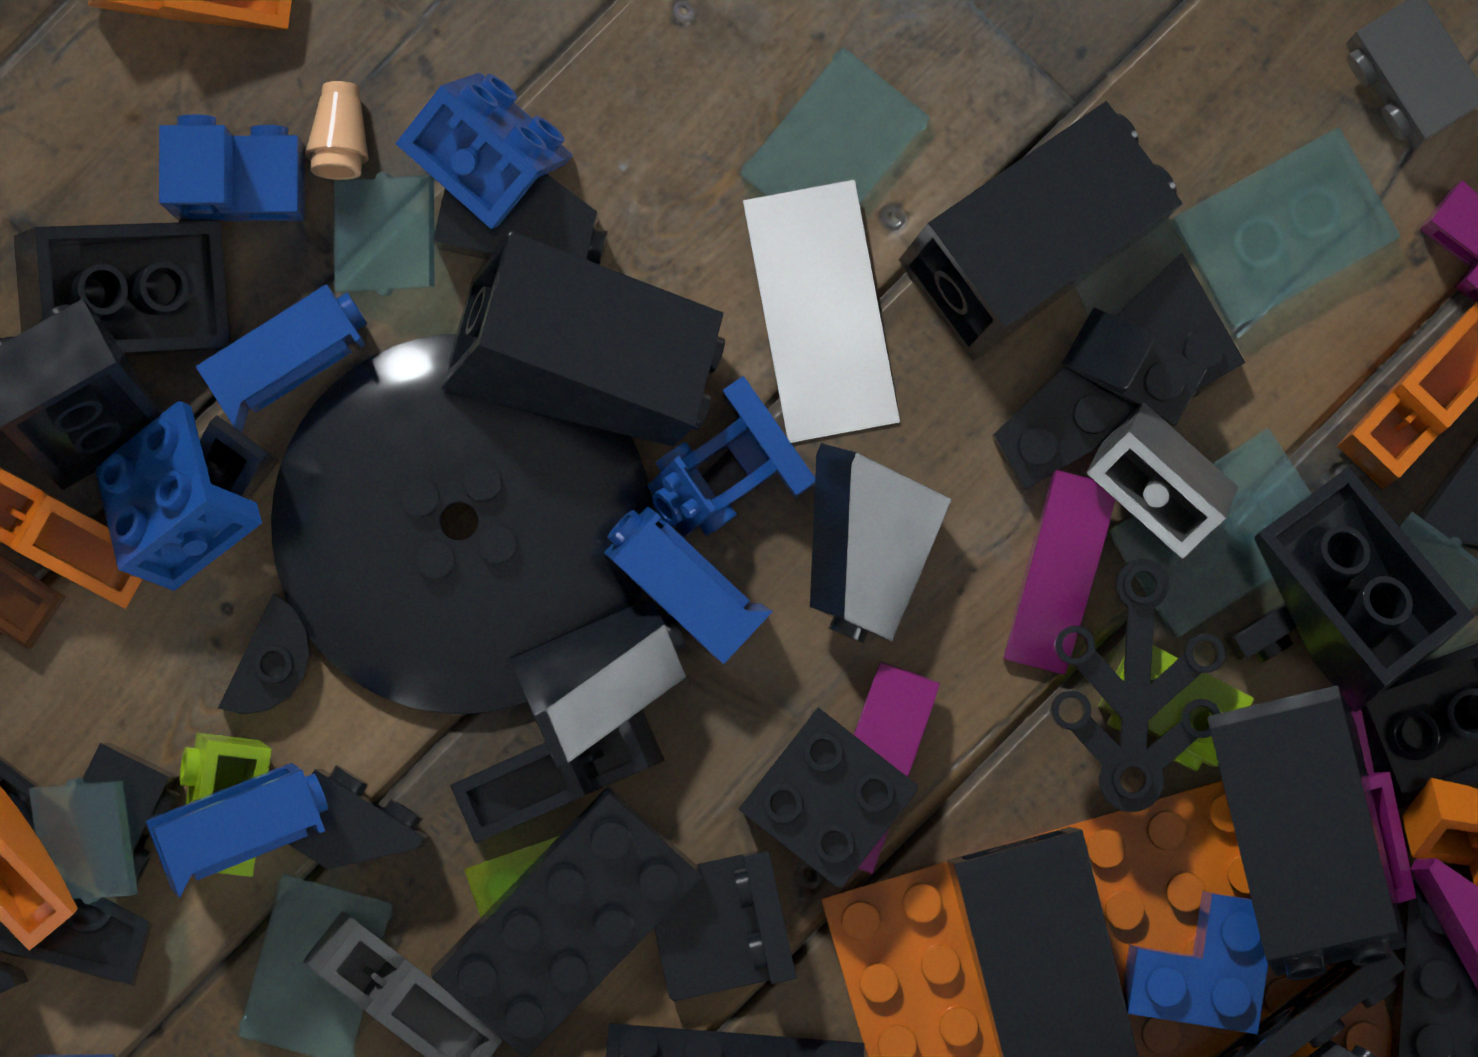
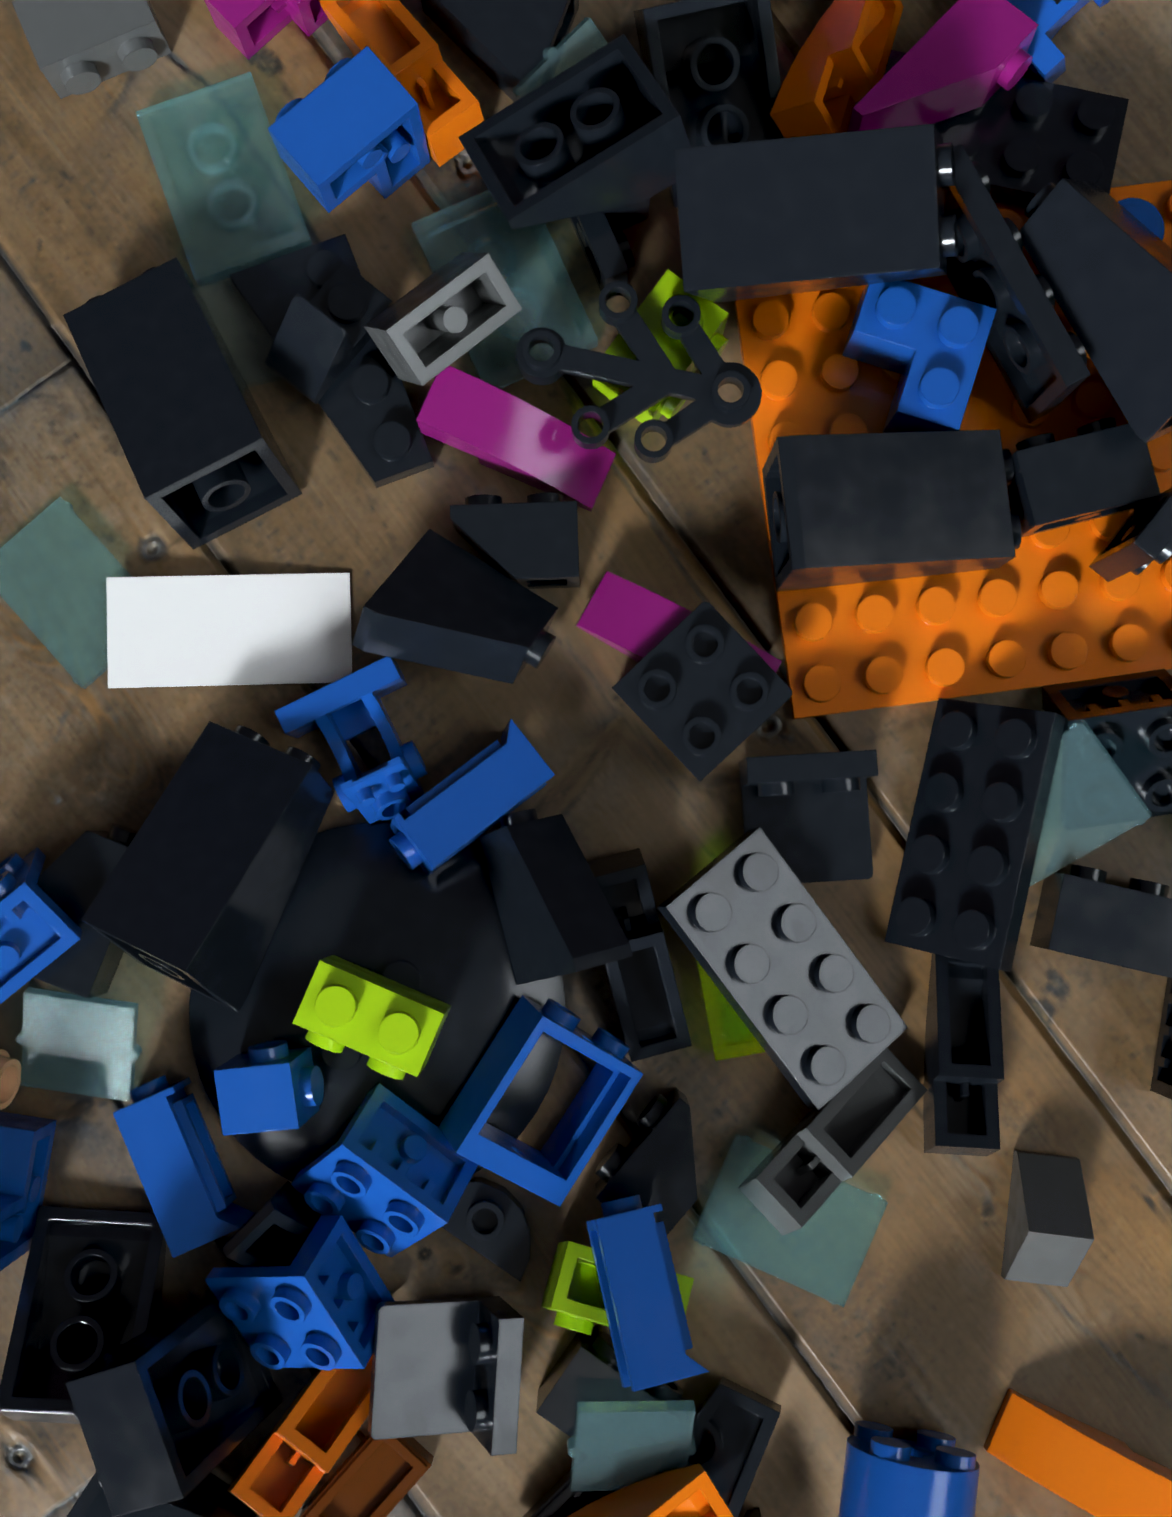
camera: 80 degrees left, 0 degrees up
(124, 650) = (447, 1370): none -> bracket
(304, 562) = (387, 1175): none -> blue bracket
(373, 433) = (268, 1089): none -> blue brick
(380, 745) = (583, 1125): none -> blue window
(460, 524) = (370, 1016): none -> lime brick
(955, 597) = (524, 541): none -> black slope
(1336, 356) = (352, 132): none -> blue brick

